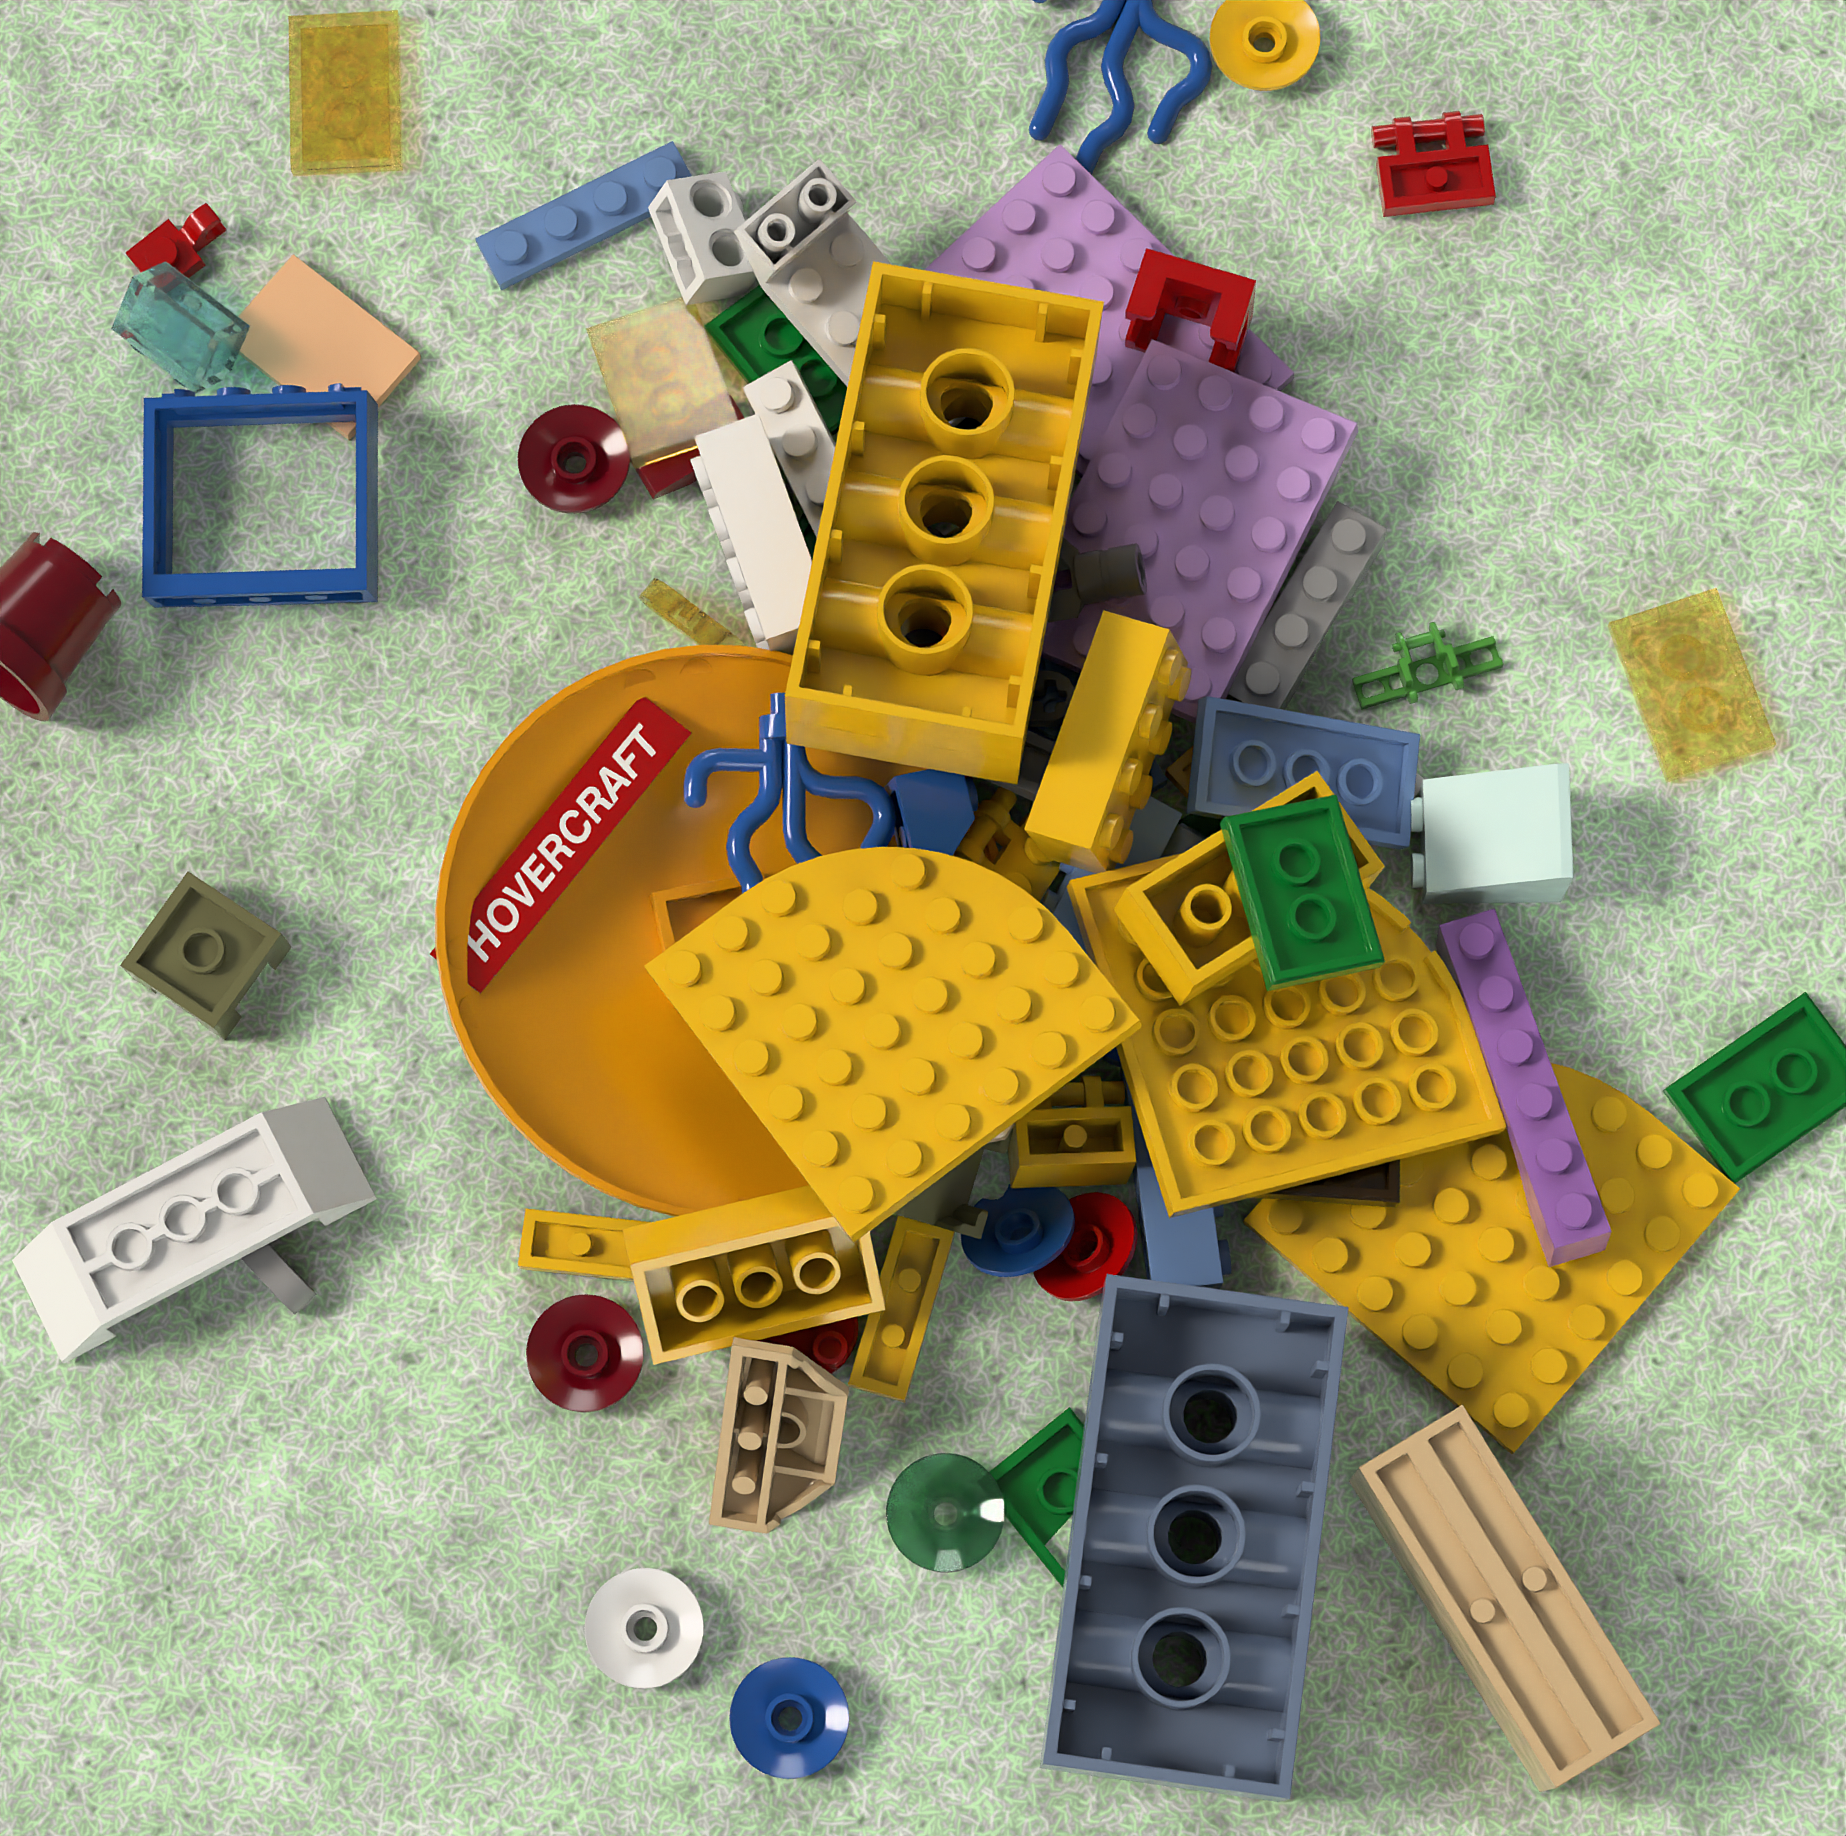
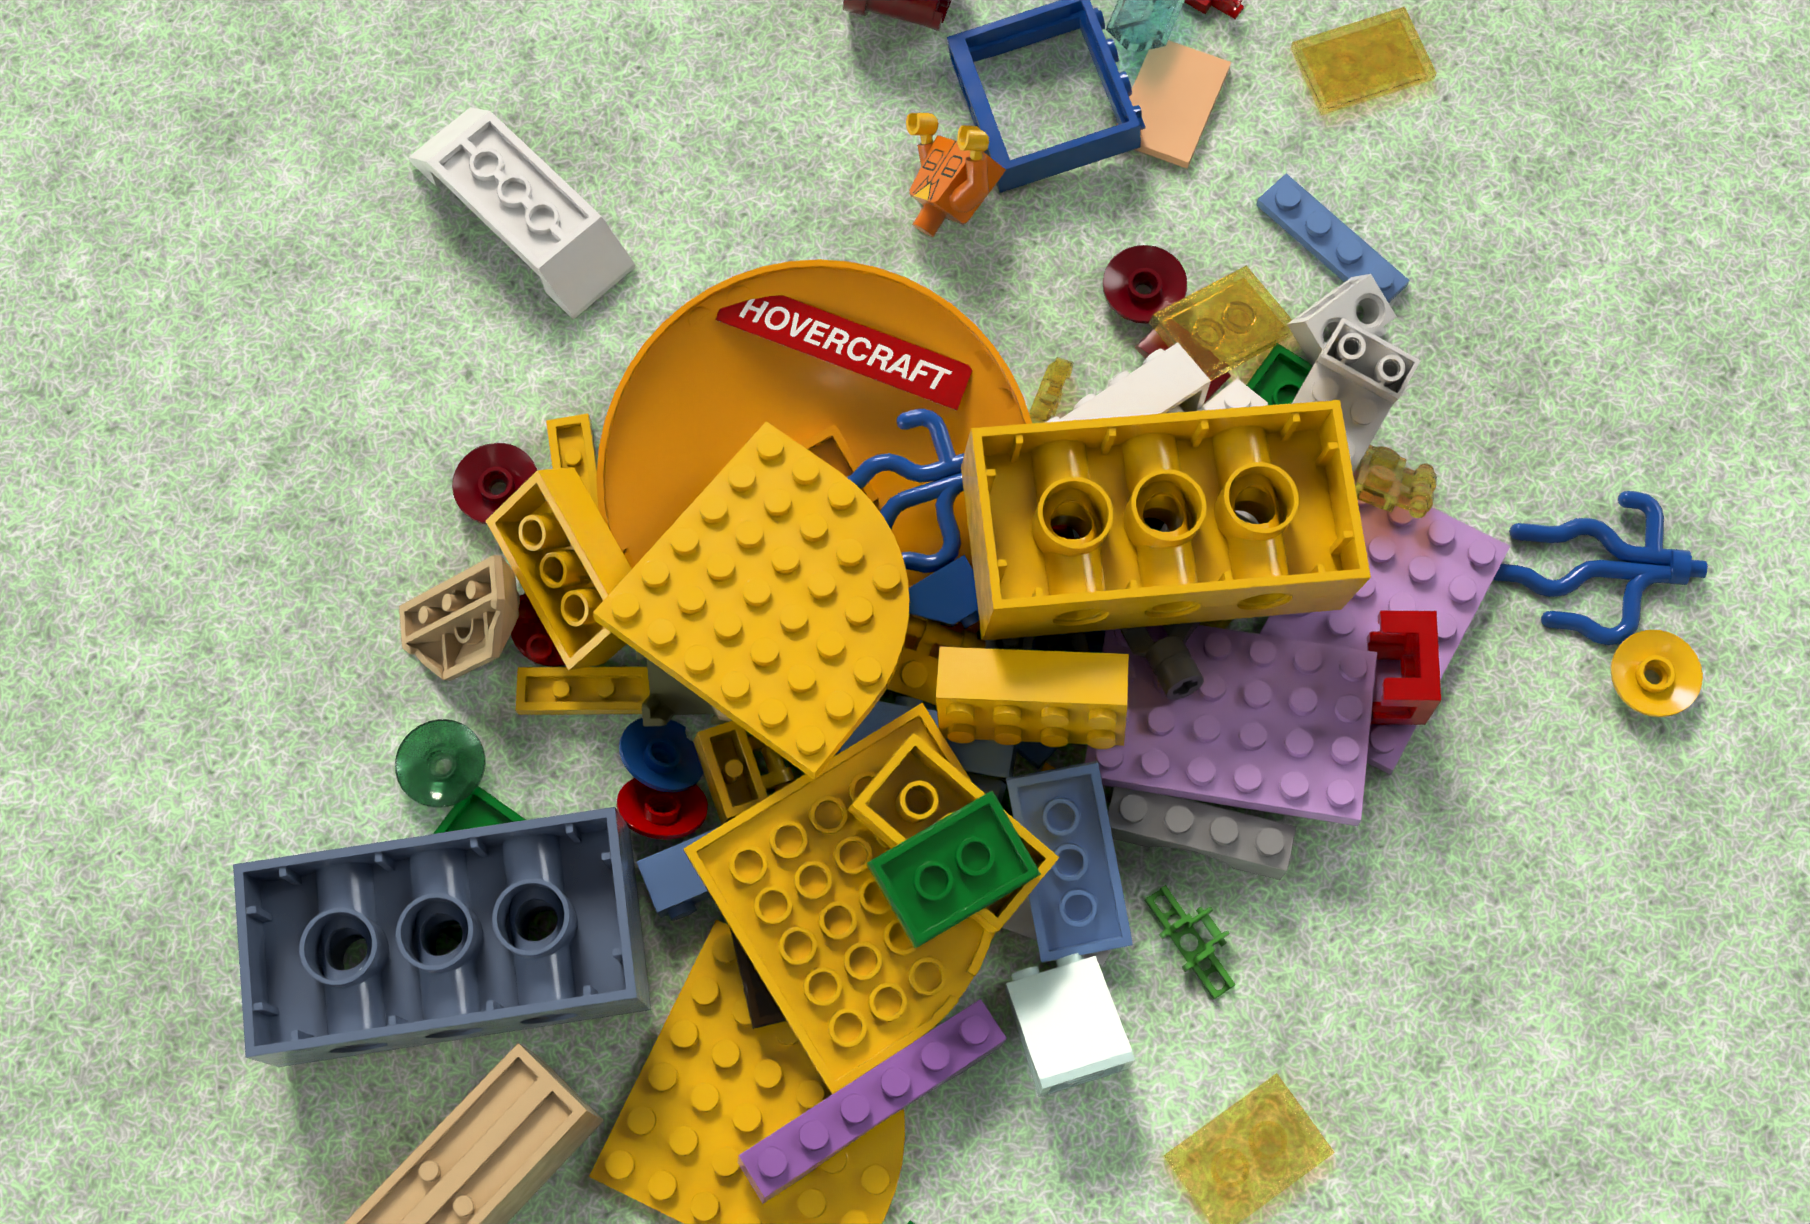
camera: 70 degrees right, 5 degrees down
(204, 953) = (708, 154): olive panel -> none
(279, 1277) = (499, 272): light grey beam -> none
(348, 651) = (952, 173): none -> orange torso
(612, 1624) = (296, 567): white dish -> none
(757, 1710) = (256, 680): blue dish -> none
(931, 247) = (1387, 483): none -> clear yellow plate
(1437, 178) = (1593, 837): red plate -> none

